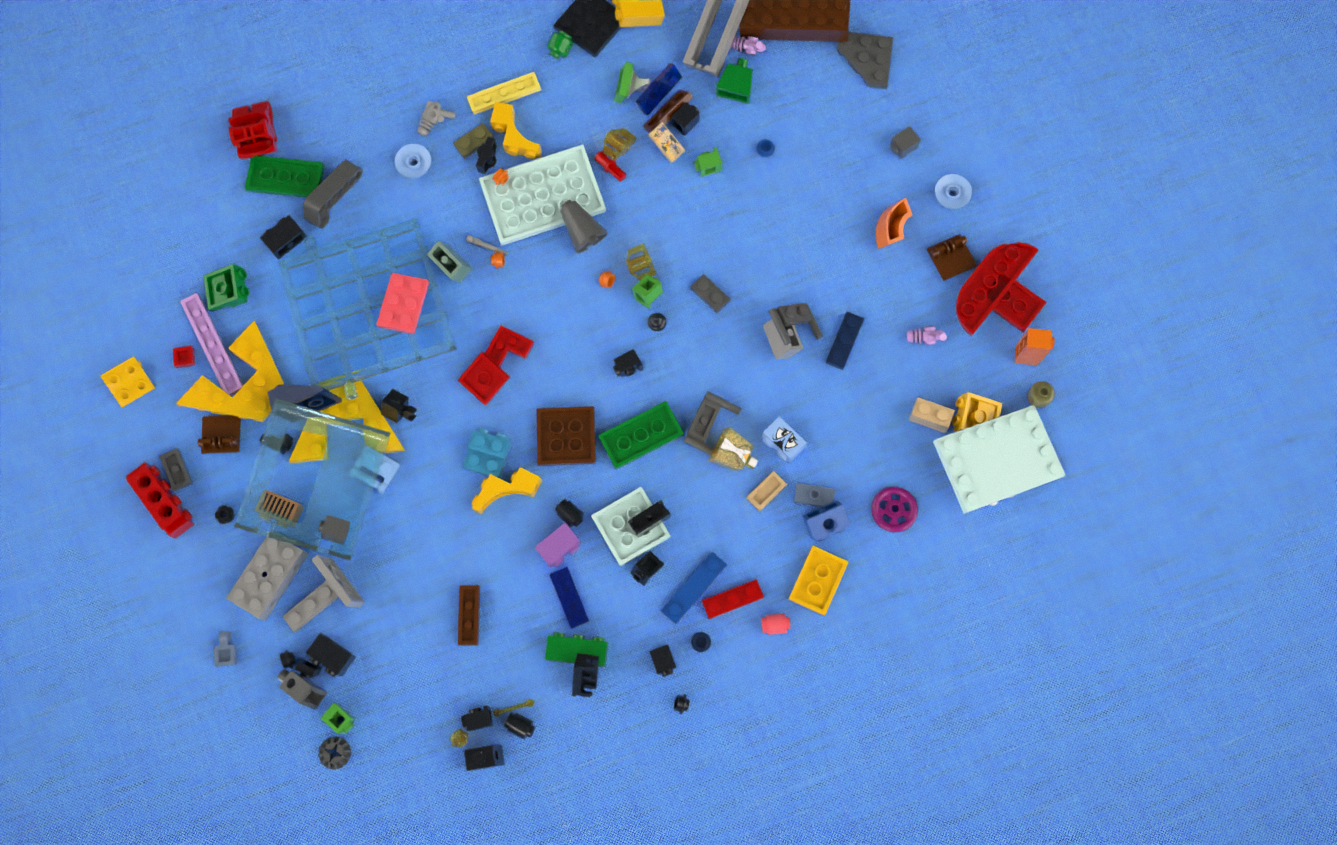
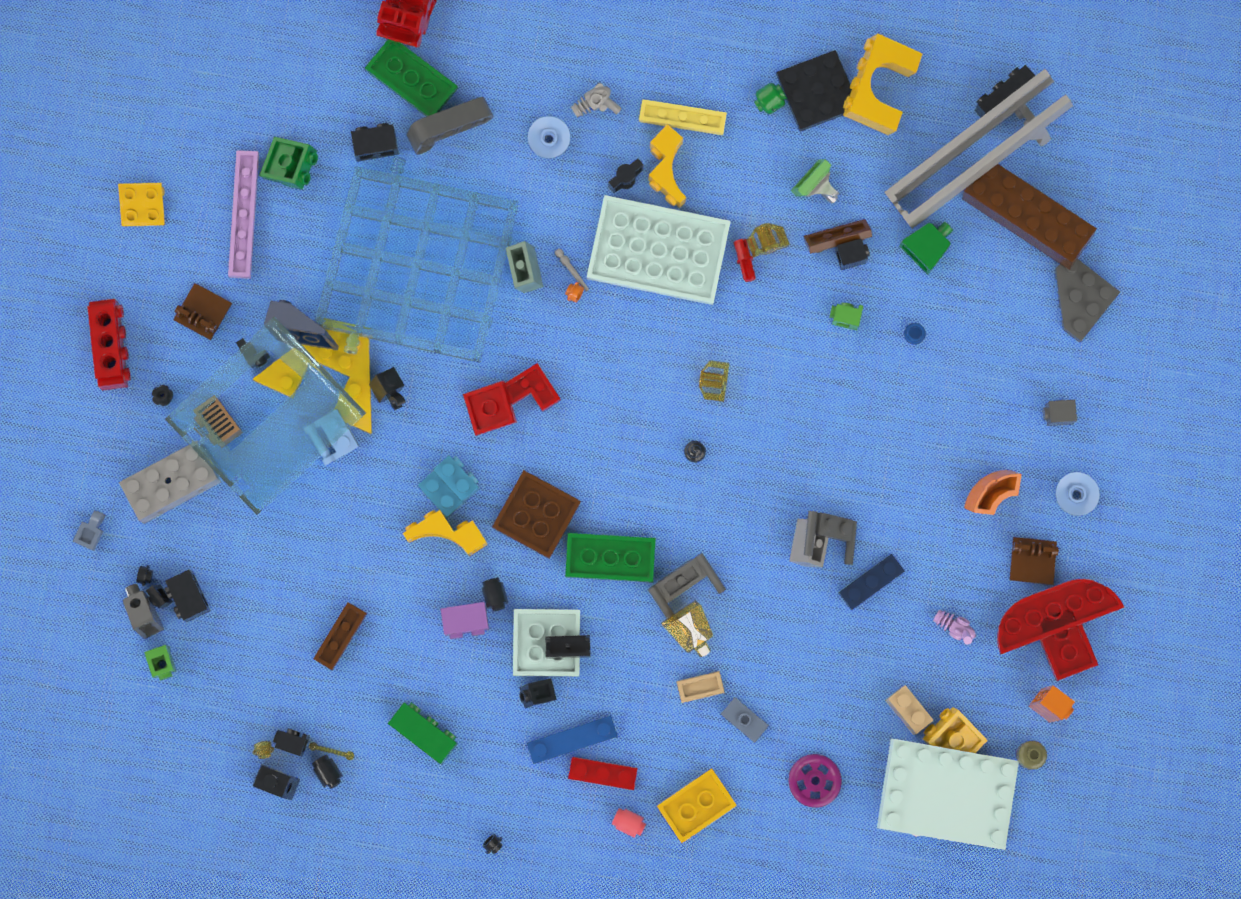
camera: 25 degrees right, 5 degrees up
(176, 469) = (140, 322): dark grey plate -> none
(184, 356) = (209, 210): red plate -> none
(253, 398) = (253, 294): yellow wing -> none
(334, 529) = (258, 478): dark grey brick -> none
(334, 587) = (228, 532): light grey piece -> none
(343, 749) = (149, 692): dark grey gear -> none
(402, 303) = (453, 285): coral plate -> none
(472, 140) = (622, 150): olive plate -> none
(500, 177) = (626, 208): orange plate -> none
(569, 598) = (446, 677): clear blue plate -> none
(581, 226) = (676, 308): dark grey cone -> none
(585, 674) = (416, 761): black hinge -> none
(606, 279) = (671, 377): orange plate -> none
(627, 364) = (639, 477): black brick -> none
(647, 290) = (704, 413): bright green brick -> none
(658, 89) = (843, 206): clear blue plate -> none
(663, 660) = (499, 793): black brick -> none
(666, 142) = (816, 269): tile -> none
(701, 642) = (547, 796): dark blue plate -> none
(710, 293) = (766, 453): dark grey plate -> none
(751, 45) = (966, 214): lavender piece -> none
(784, 440) = (747, 646): light blue brick -> none
(815, 519) = (730, 744): brick -> none

